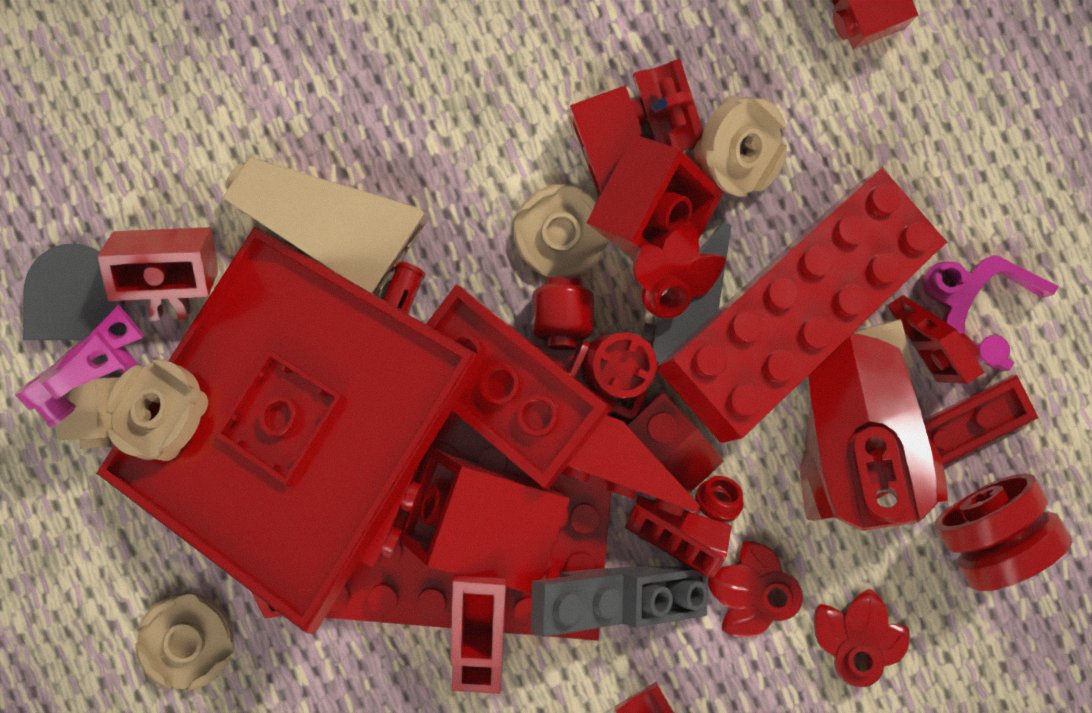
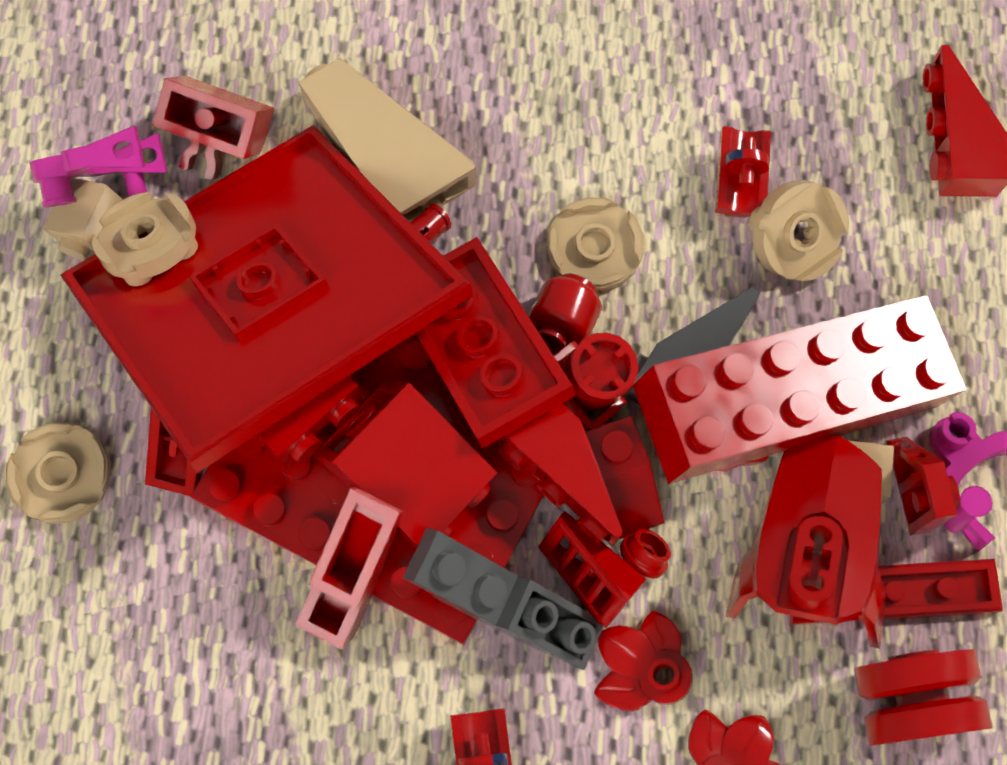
camera: 25 degrees right, 15 degrees down
(66, 295) = (112, 105): dark grey tile -> none
(604, 130) = (676, 174): red slope -> none
(651, 194) = (695, 245): red brick -> none
(677, 268) = (694, 299): red plate -> none

